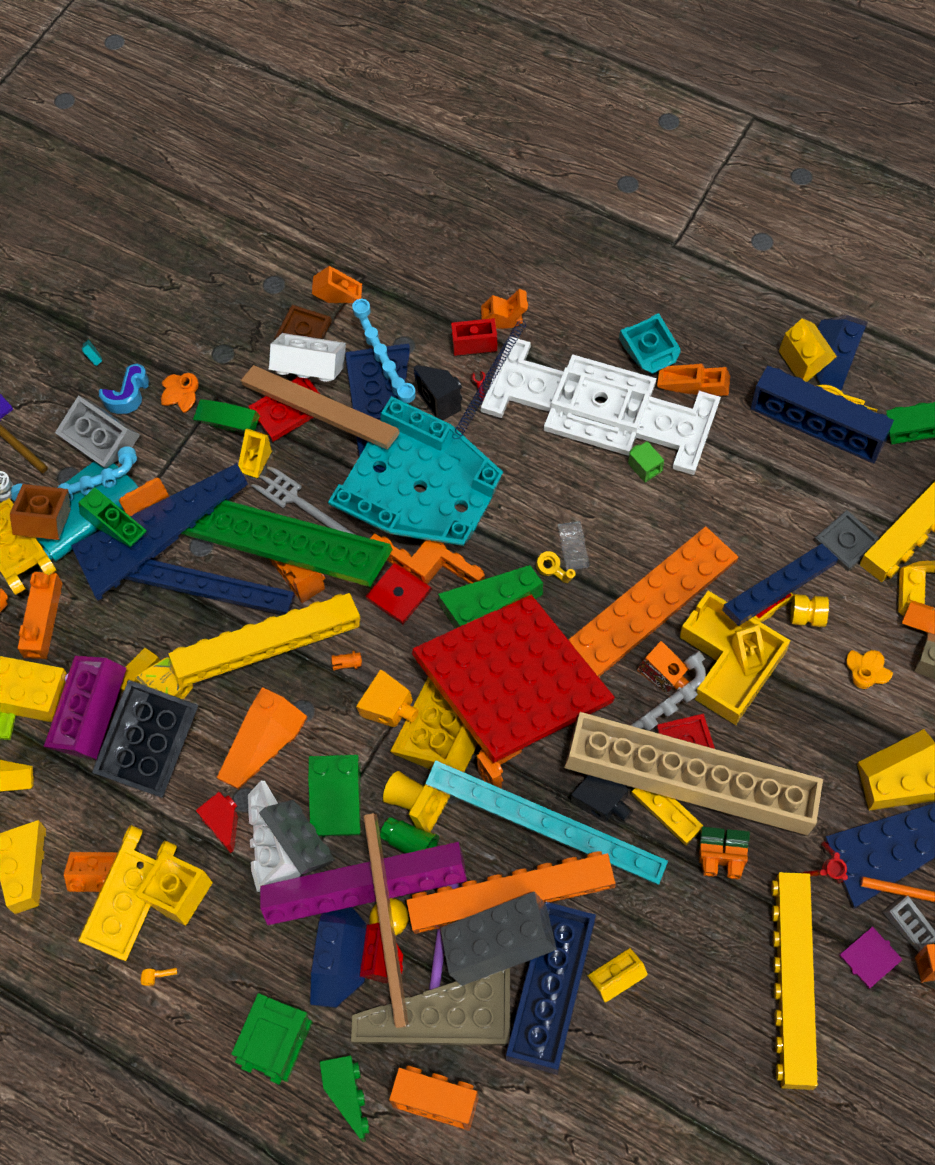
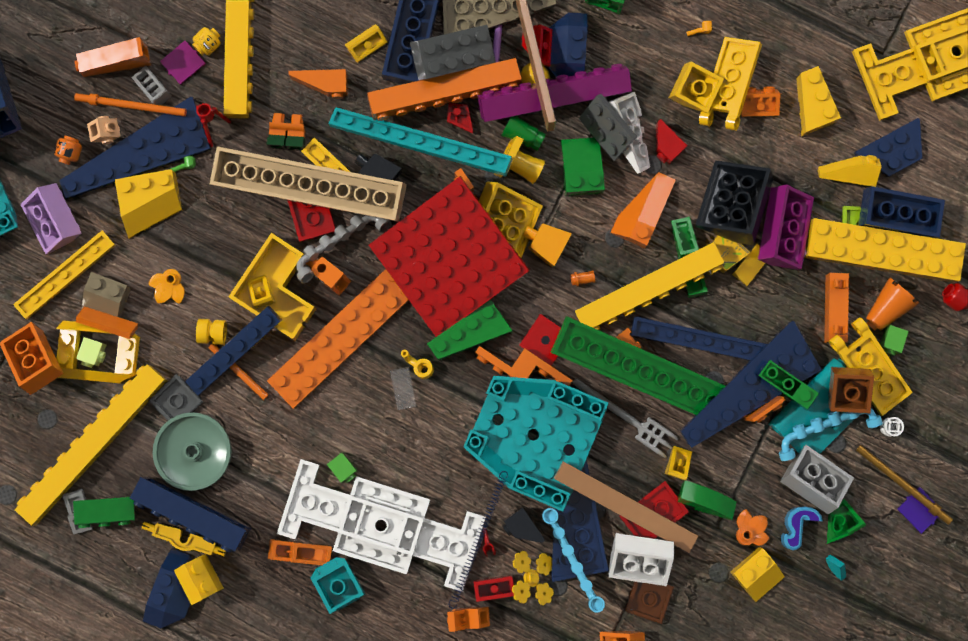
camera: 170 degrees right, 20 degrees up
(73, 384) = (843, 522): none -> green slope
(182, 349) = (757, 574): none -> yellow slope
(213, 697) = (685, 245): none -> green slope
(432, 344) = (531, 578): none -> yellow plant
(491, 864) = (459, 116): none -> red piece
(670, 917) = (328, 82): none -> orange slope
(764, 562) = (243, 376): none -> orange bar
(824, 480) = (192, 451): none -> sand green dish
(839, 979) = (206, 41): none -> yellow head
(852, 818) = (189, 163): none -> bright green hand

